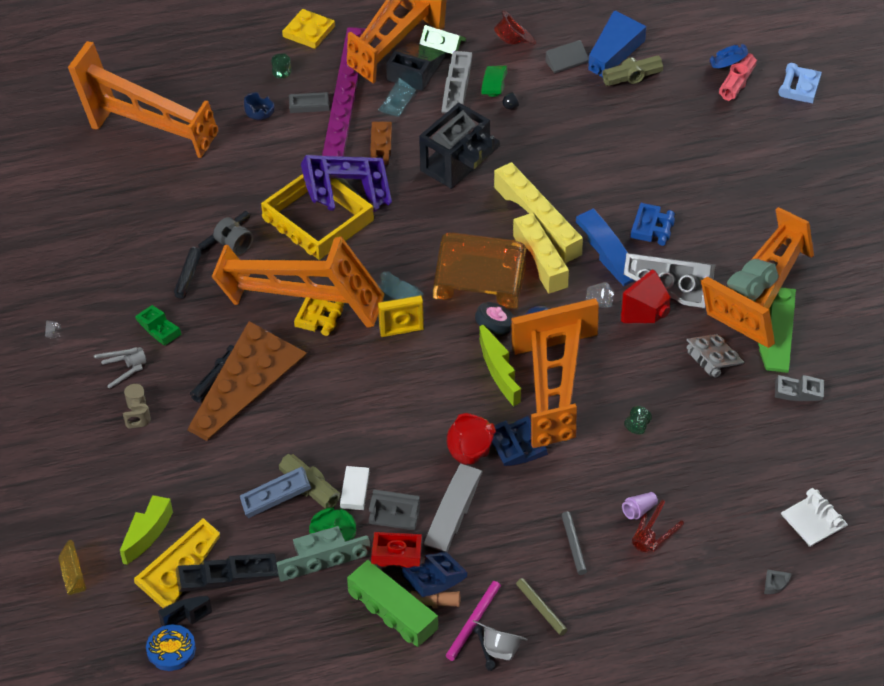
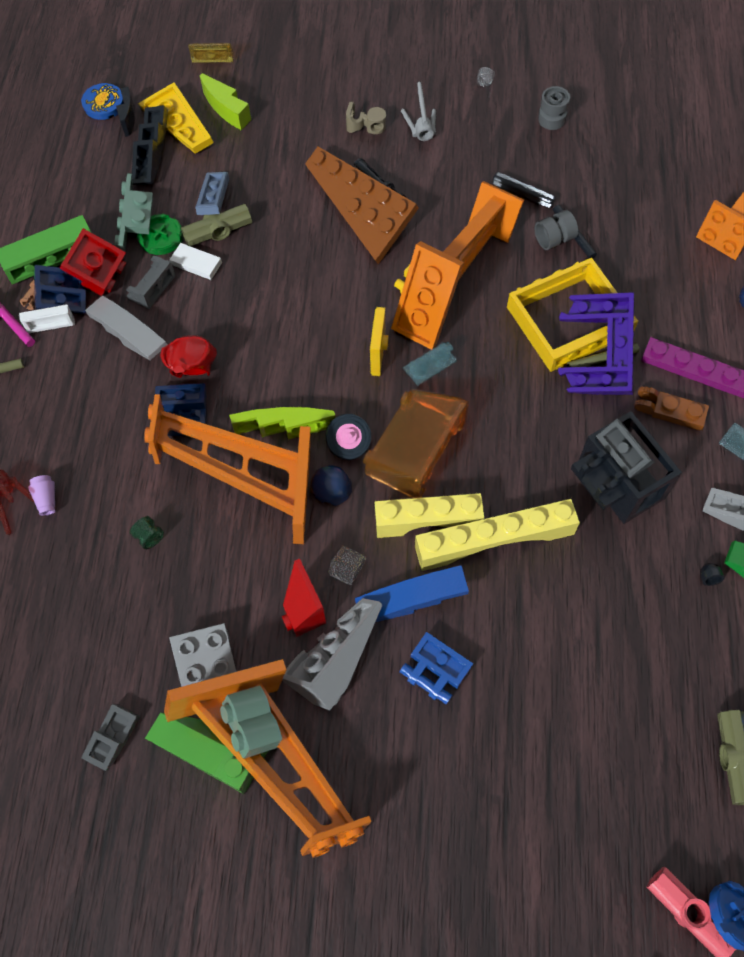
camera: 110 degrees right, 15 degrees up
(86, 265) = (553, 107): none -> dark grey wheel
(157, 325) = (465, 154): green slope -> none
(473, 579) = (47, 319): none -> white tile
(574, 543) = (38, 422): dark grey bar -> none

